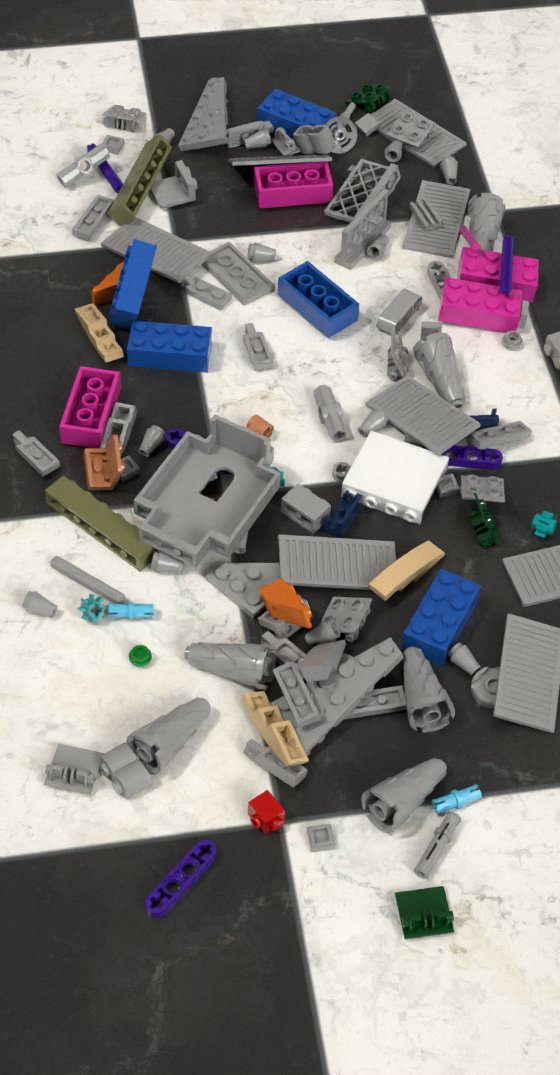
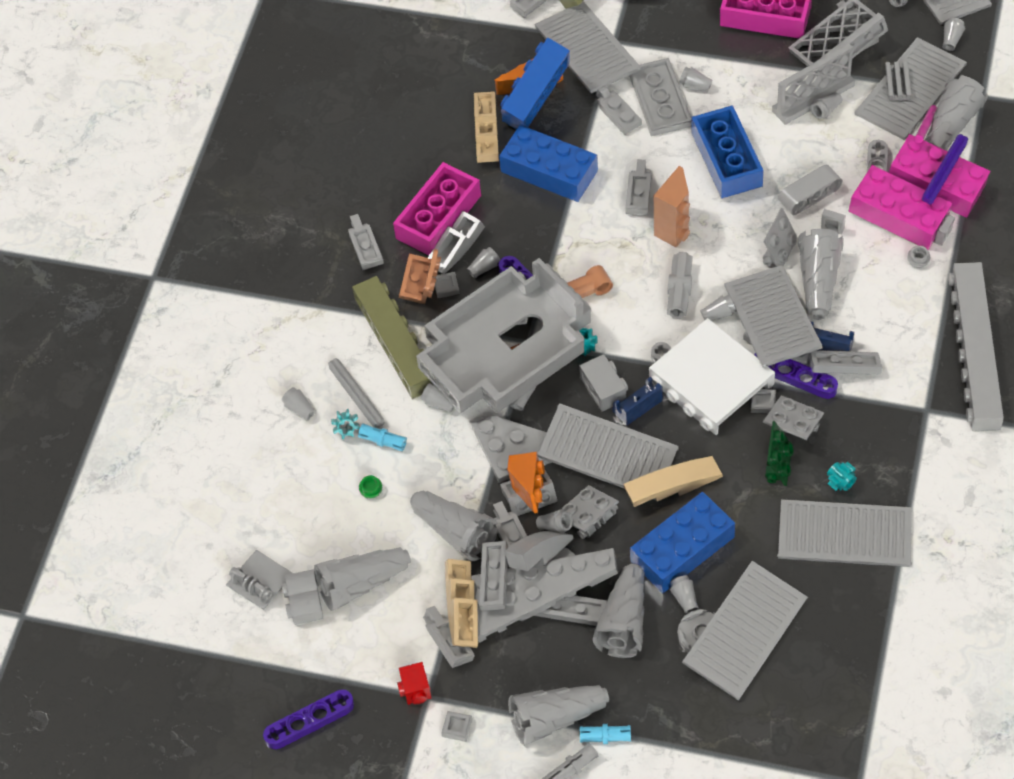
camera: 30 degrees right, 5 degrees up
(301, 352) = (672, 209): none -> nougat slope

